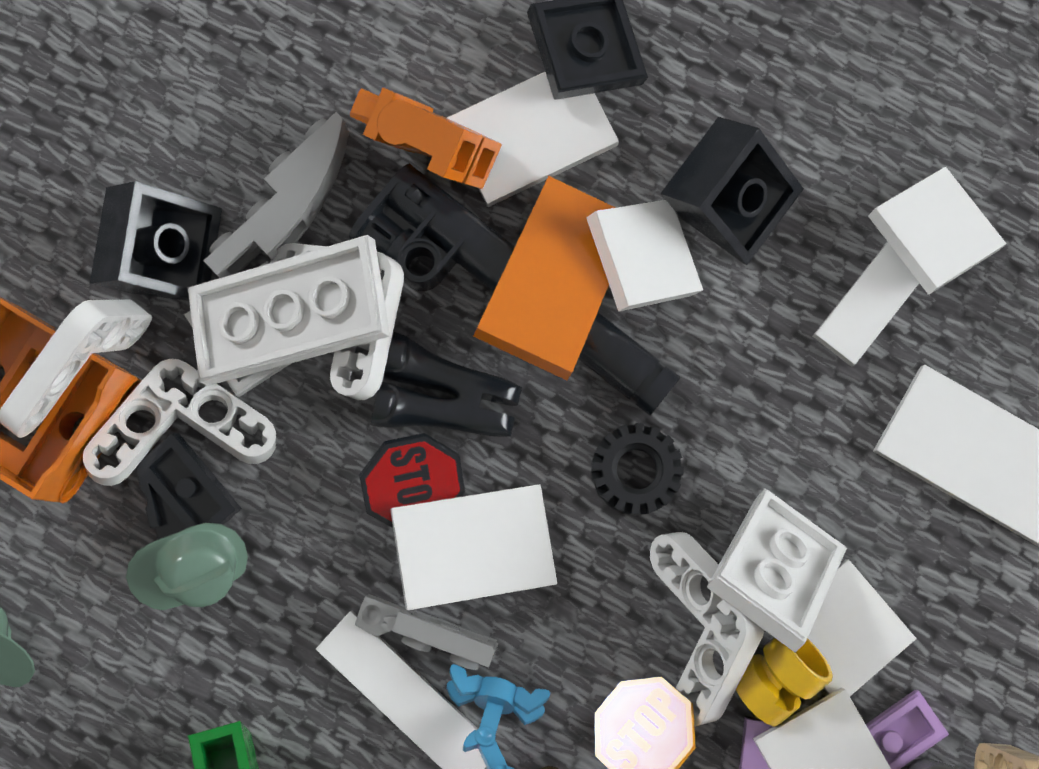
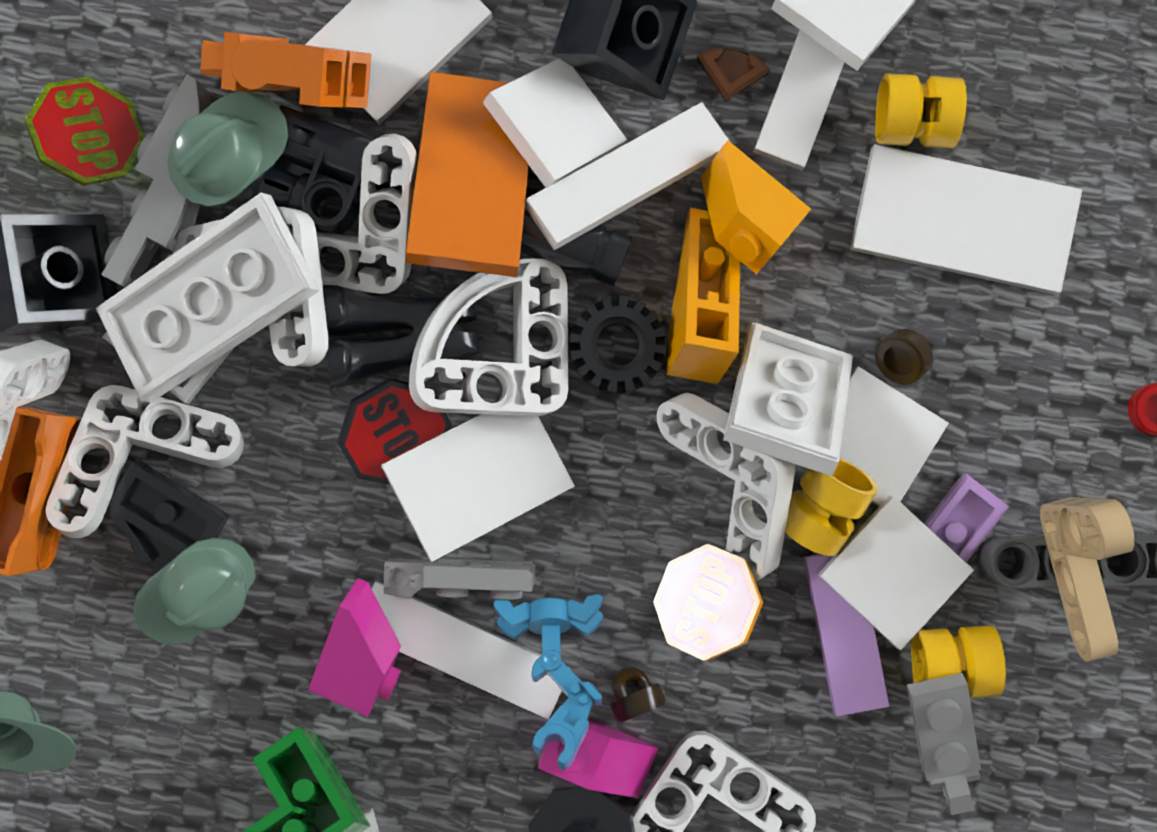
camera: 25 degrees left, 5 degrees up
(231, 132) = (84, 131): none -> piece
(314, 672) = (358, 654): none -> dark pink slope
(349, 186) = (226, 147): none -> sand green piece
(451, 305) = (372, 237): none -> white beam
(535, 468) = (515, 376): none -> white beam
(693, 322) = (626, 176): none -> white tile
(729, 454) = (704, 306): none -> light orange slope
(793, 385) = (748, 207): none -> light orange slope
(815, 258) = (731, 70): none -> reddish brown tile
(893, 564) = (904, 356): none -> dark brown tile
(959, 339) = (901, 109): none -> yellow wheel

